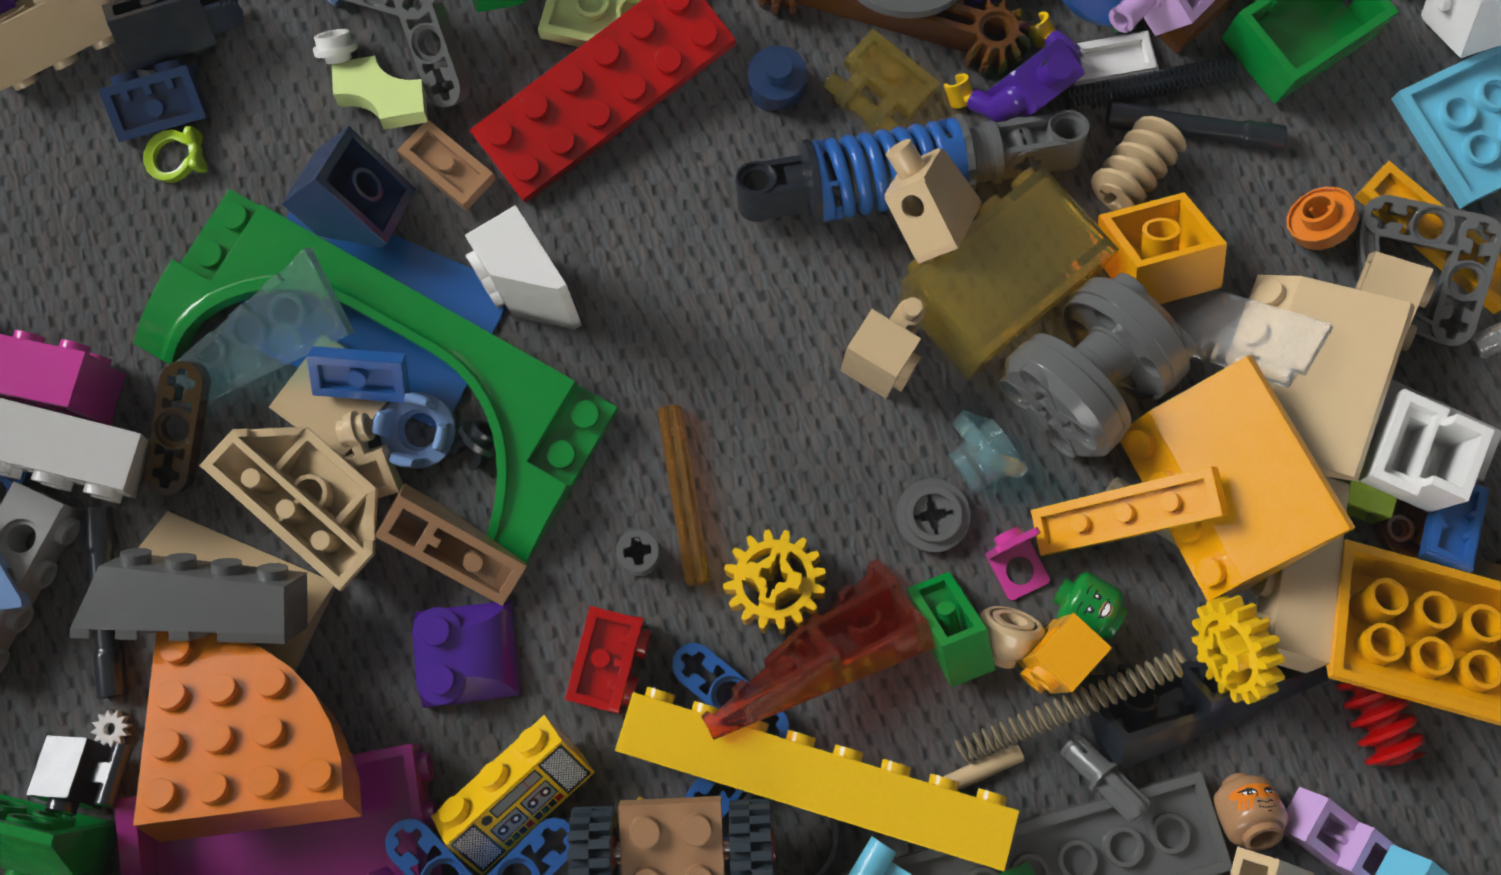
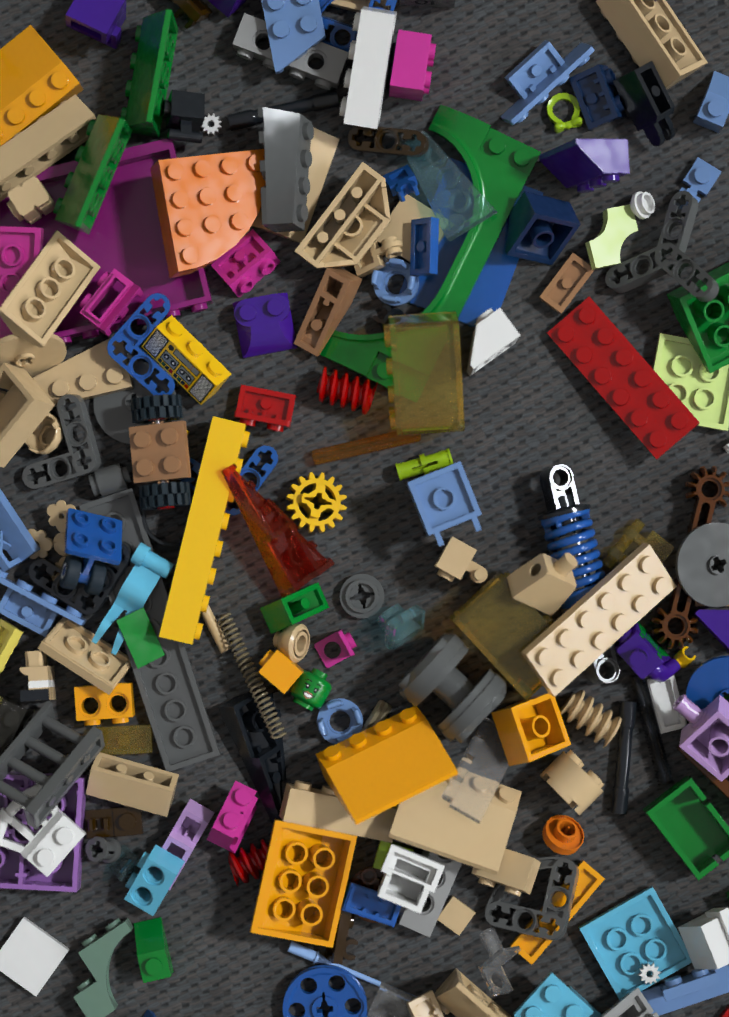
camera: 90 degrees right, 10 degrees up
(107, 185) = (539, 75): none -> medium blue bracket
(245, 101) = (588, 162): none -> dark purple slope
(249, 404) = (402, 182): none -> blue plate
(357, 680) = (246, 263): none -> dark pink bracket
(569, 376) = (425, 373): none -> clear yellow windscreen
(589, 520) = (345, 391): none -> red piece
(626, 545) = (333, 414): dark grey bush -> none
(720, 401) = (423, 464): none -> lime pin
(776, 78) = (637, 487): dark blue piece -> none
(786, 360) = (444, 500): none -> medium blue container
(994, 129) = (598, 619): none -> tan plate
(1105, 778) = (213, 698): dark grey axle -> none
(1131, 511) = (365, 706): light orange plate -> none
(1166, 566) = (328, 709): none -> medium blue piece
(1238, 649) = (288, 769): yellow gear -> none
(1245, 192) = (572, 782): none -> tan brick
(1250, 811) = (199, 782): medium nougat head -> none
(1314, 750) = (230, 823): none -> dark pink window
(1454, 389) = (456, 915): none -> tan tile

